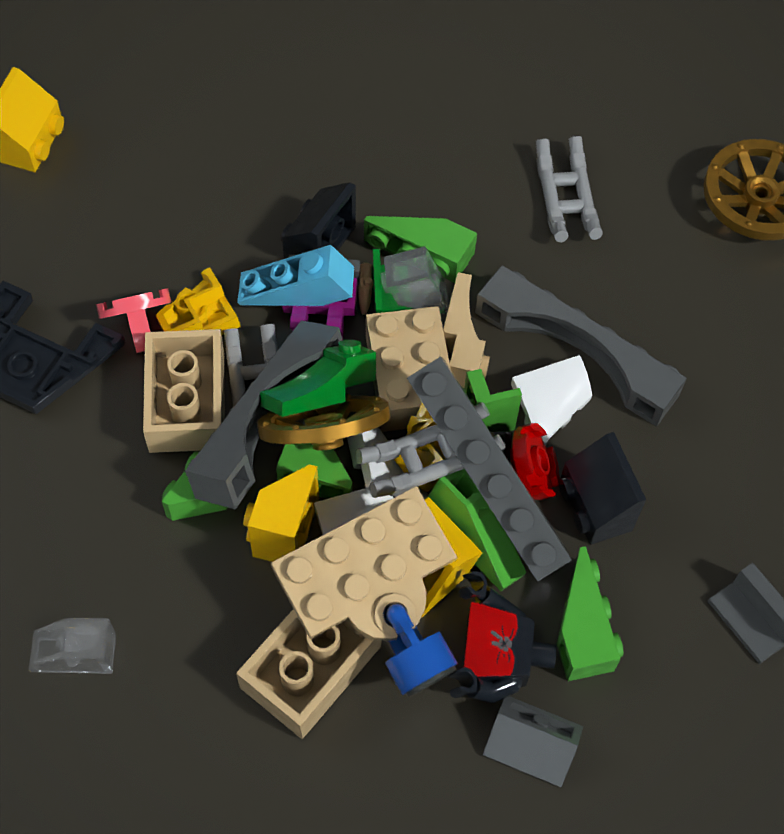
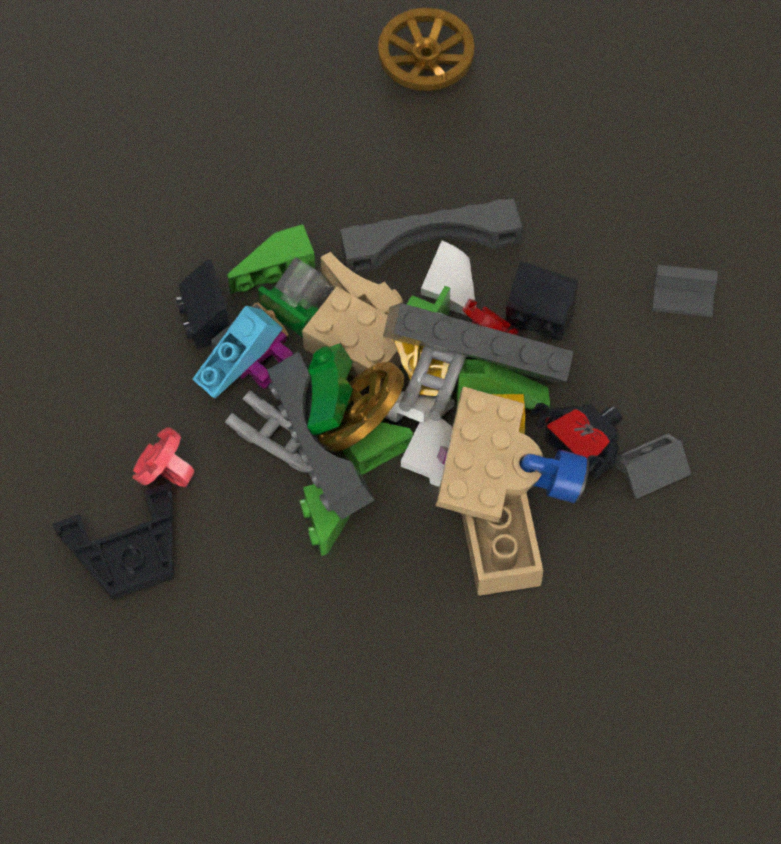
camera: 45 degrees left, 0 degrees up
(74, 646) = (366, 667): clear slope -> none
(183, 389) = (250, 474): tan brick -> none
(199, 308) = (198, 427): yellow slope -> none
(282, 514) = (401, 484): yellow slope -> none
(577, 177) = (312, 138): light grey piece -> none
(585, 633) = (609, 380): bright green slope -> none

